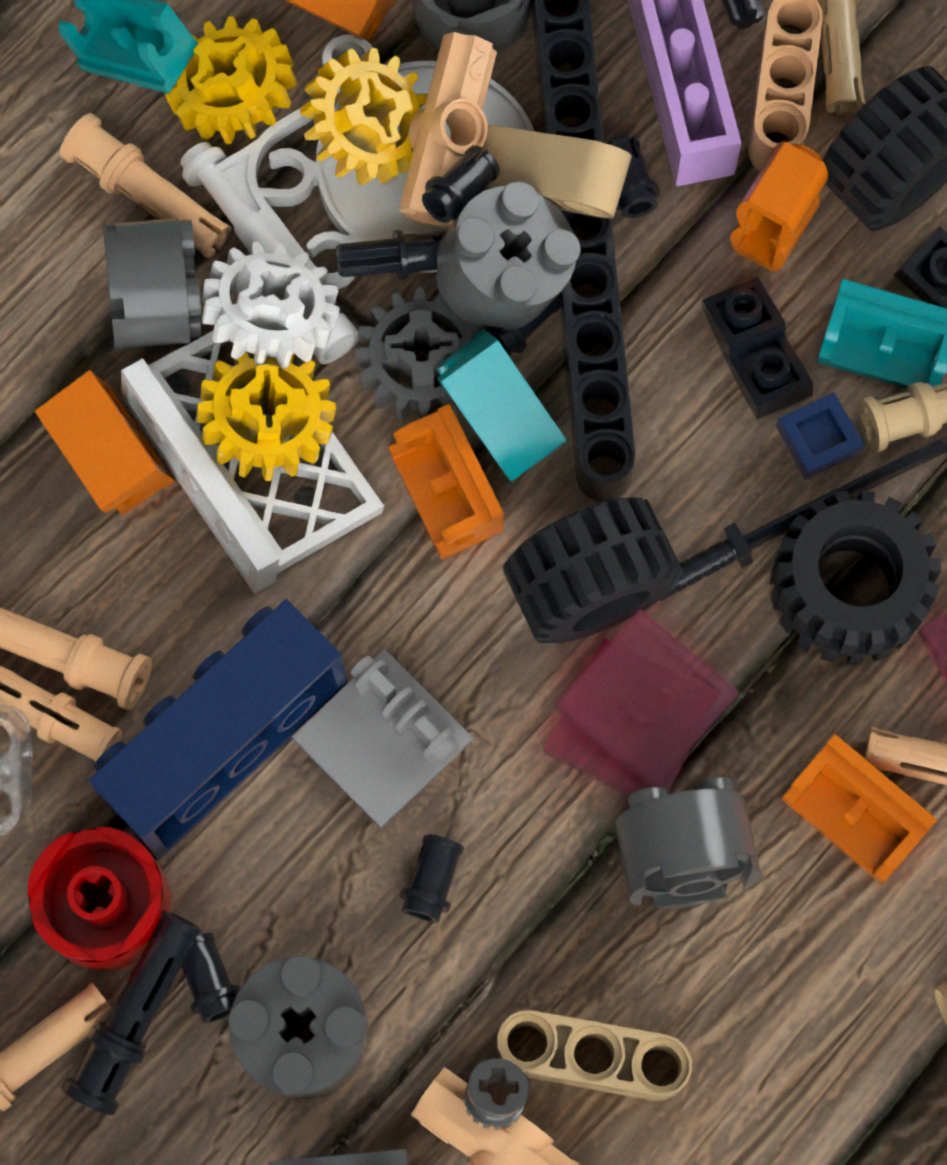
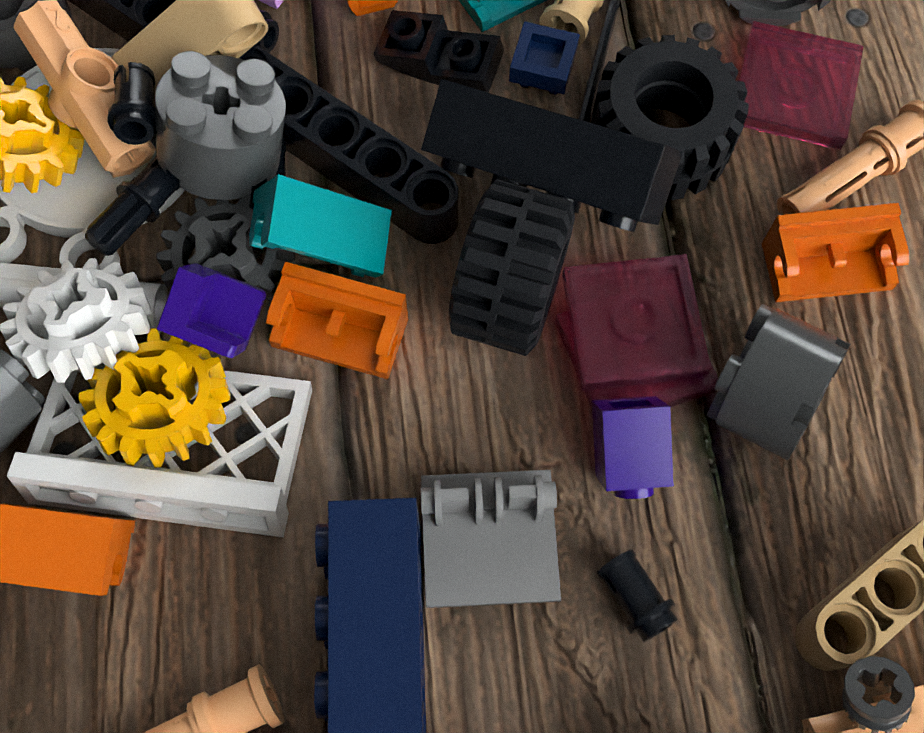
camera: 50 degrees left, 5 degrees down
(361, 390) = (211, 310): none -> dark purple panel
(539, 778) = (632, 445): none -> dark purple brick
(720, 516) = (552, 153): none -> black brick

